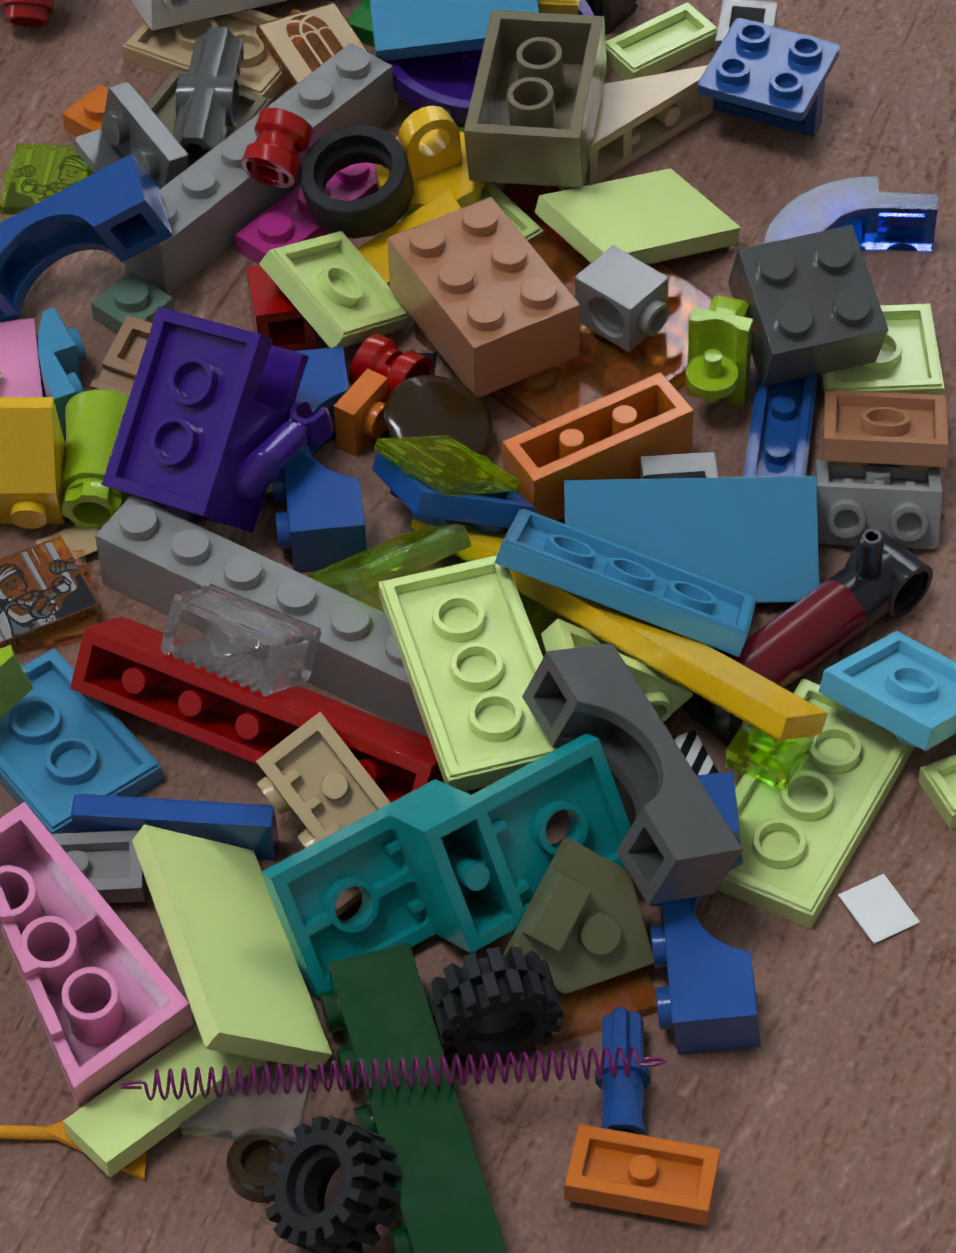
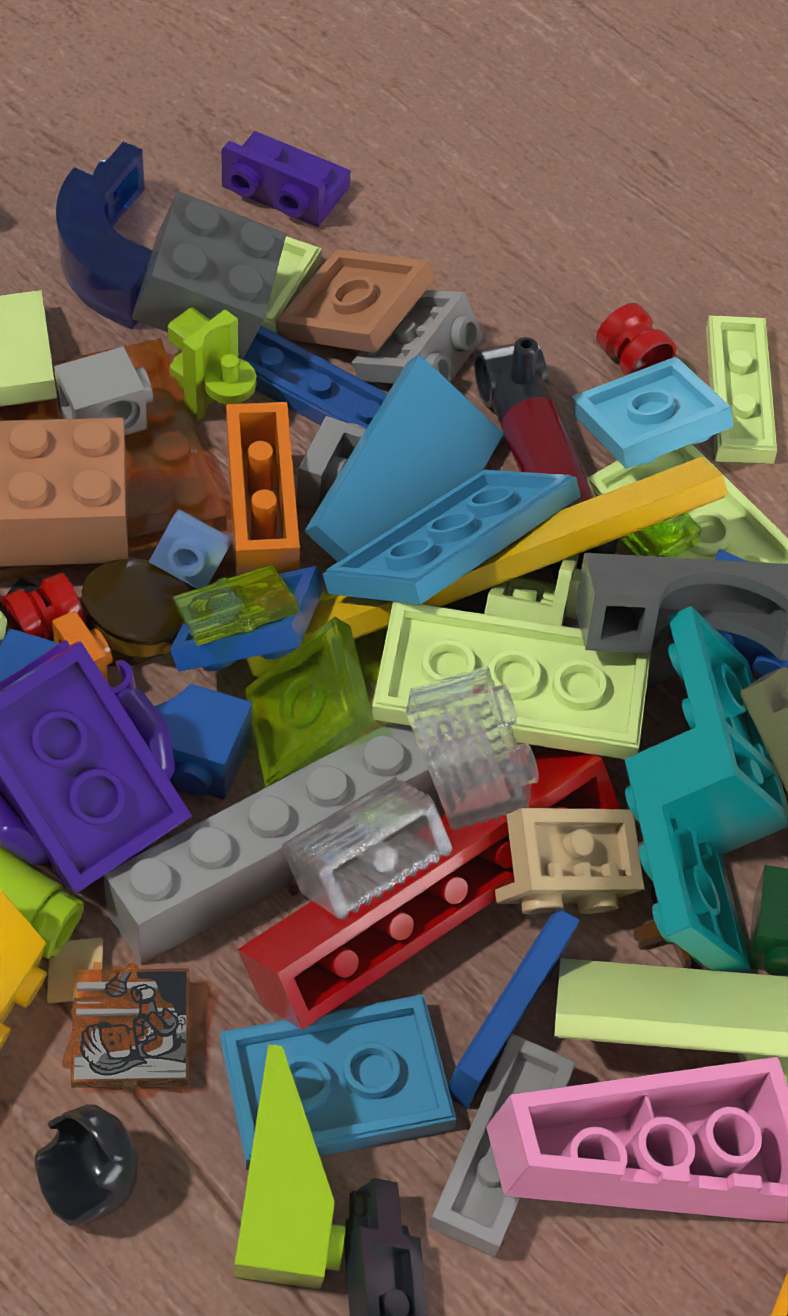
camera: 70 degrees left, 5 degrees up
(367, 657) = (472, 747): none -> clear brick
(503, 418) = (190, 550): none -> medium blue bracket

